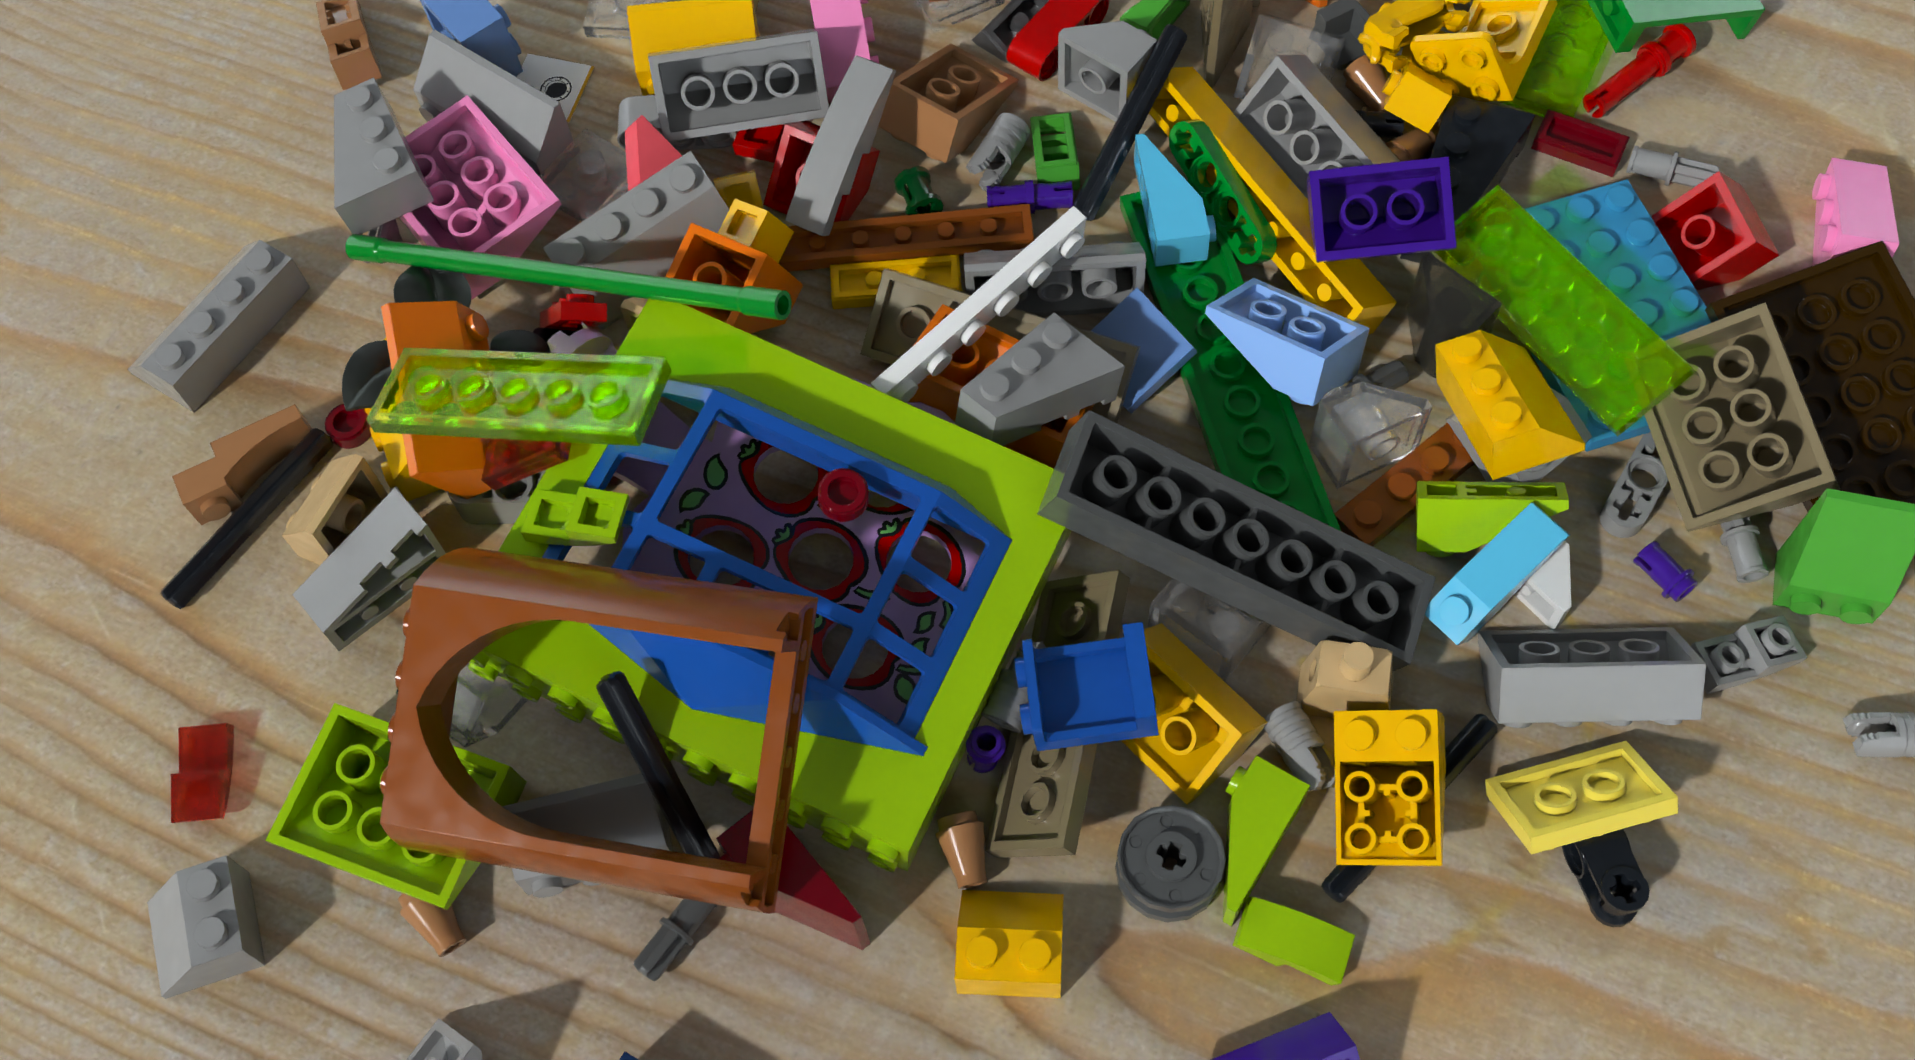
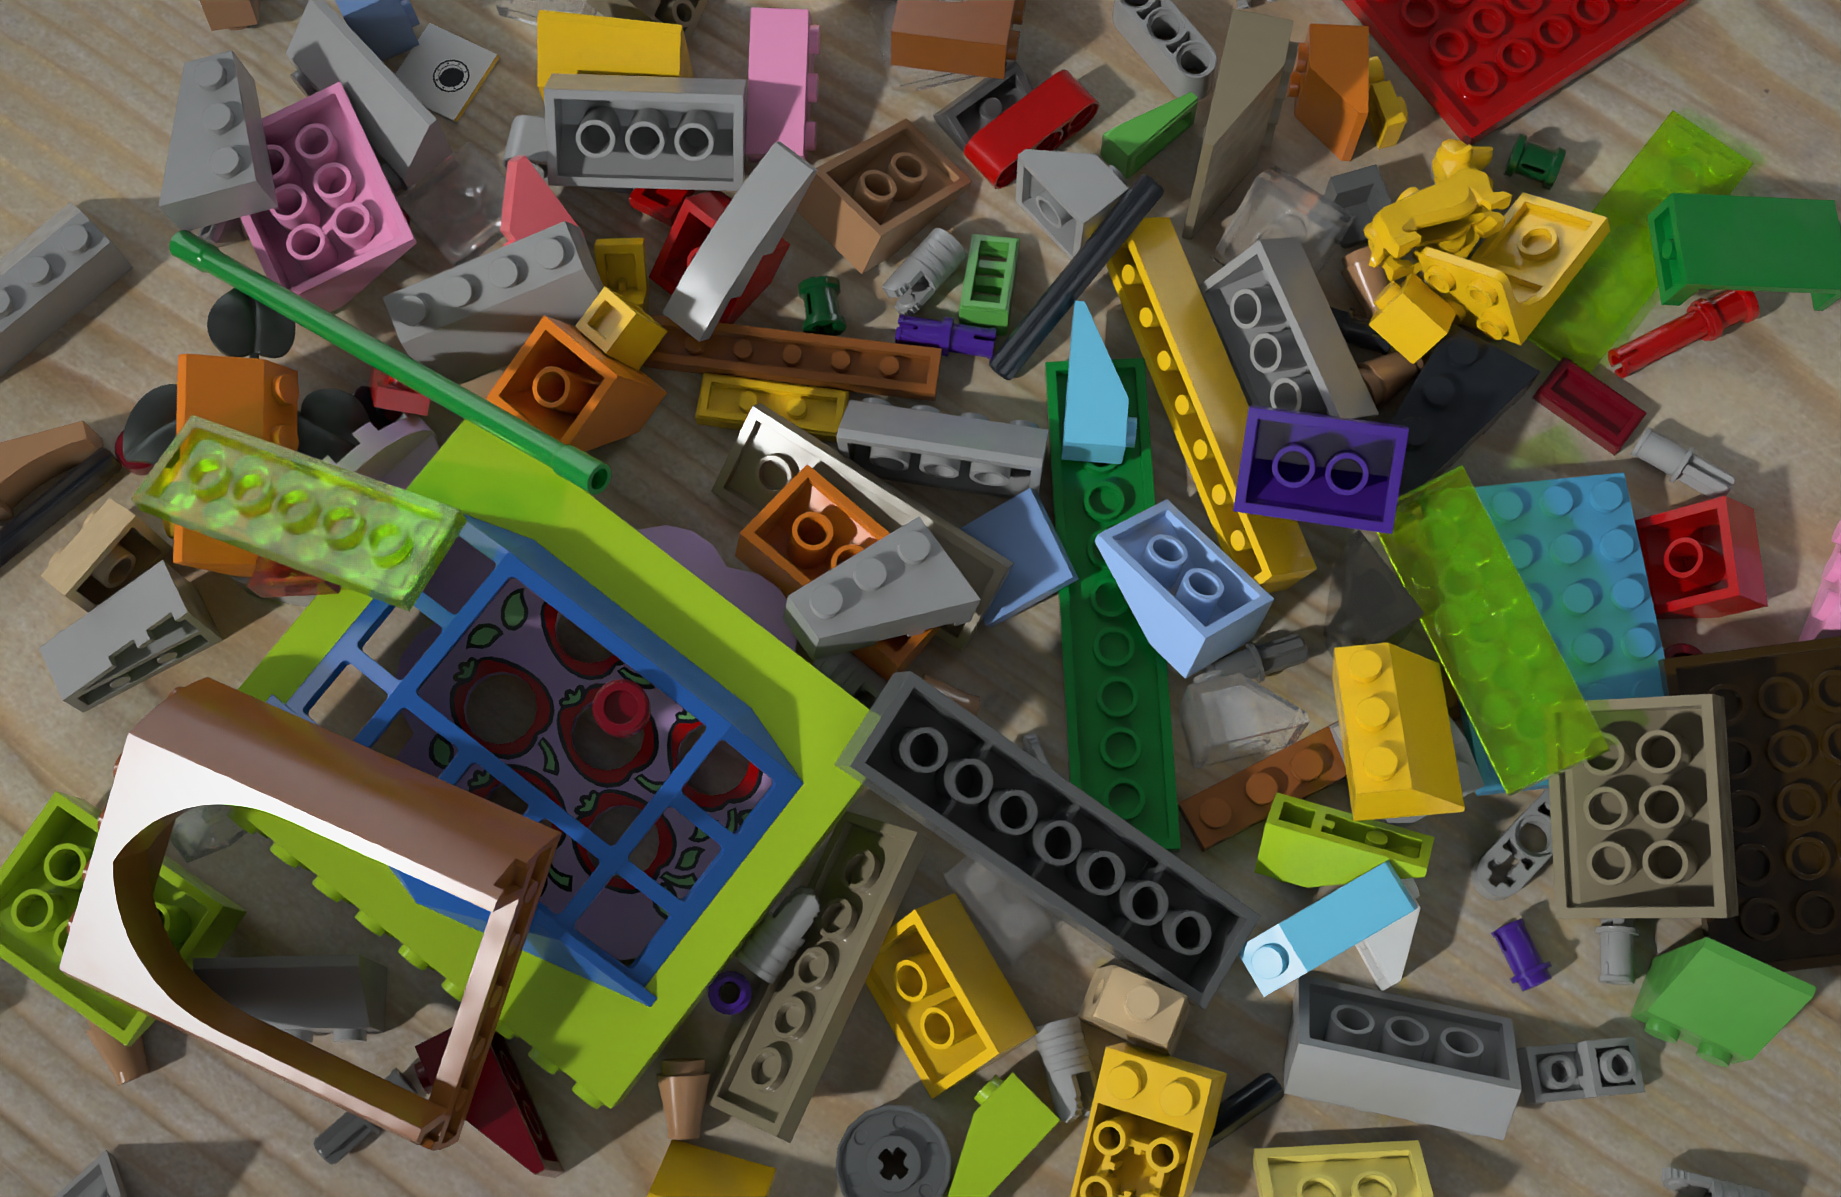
camera: 10 degrees right, 10 degrees up
(575, 520) = (331, 665): lime slope -> none
(655, 765) = (369, 959): black axle -> none
(994, 297) = (821, 505): white plate -> none
(1087, 691) = (844, 969): blue panel -> none
(1227, 185) = (1142, 318): green beam -> none

